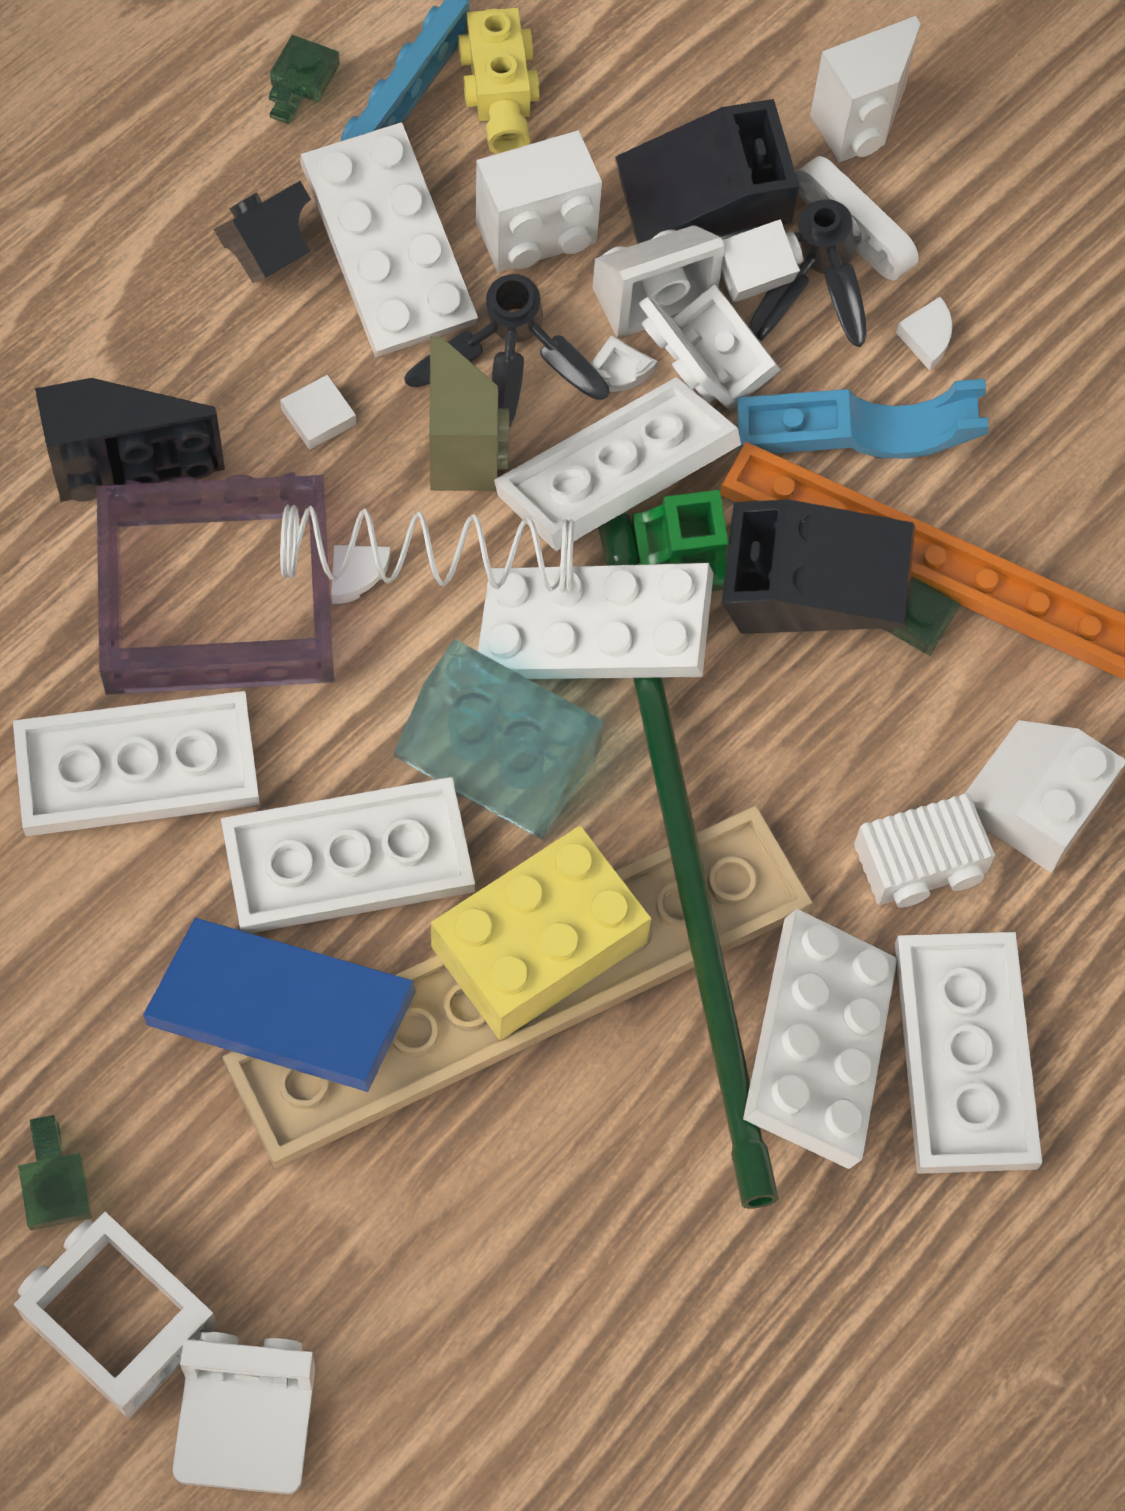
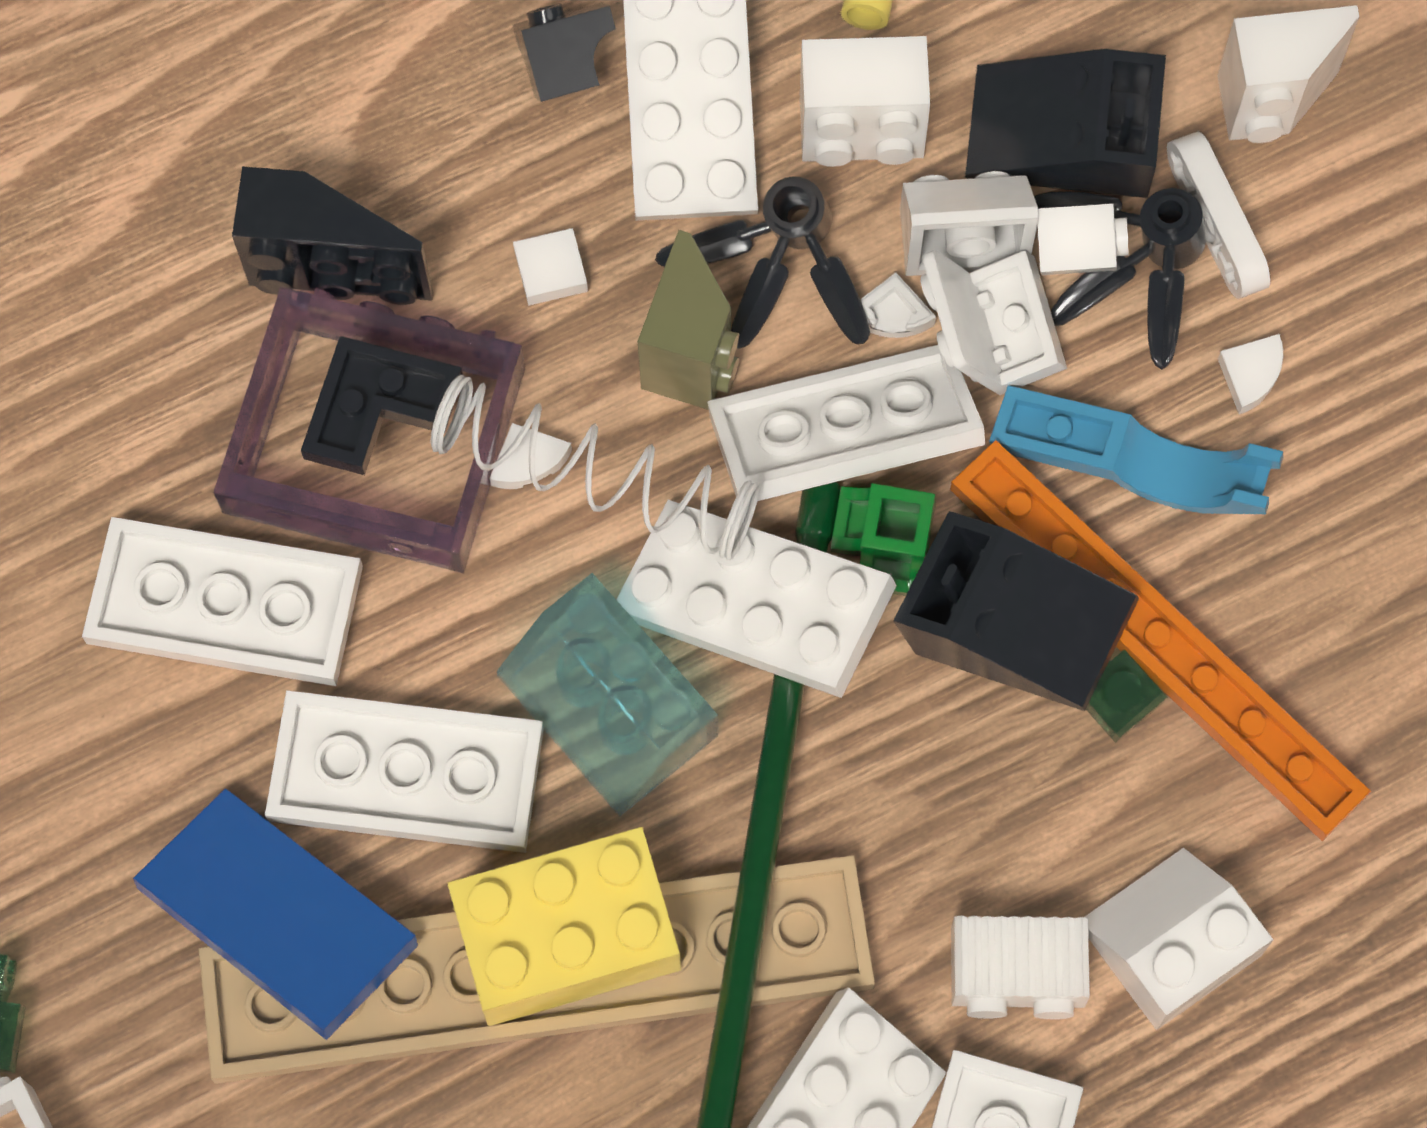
camera: 25 degrees right, 5 degrees up
(209, 539) = (362, 390): none -> black plate

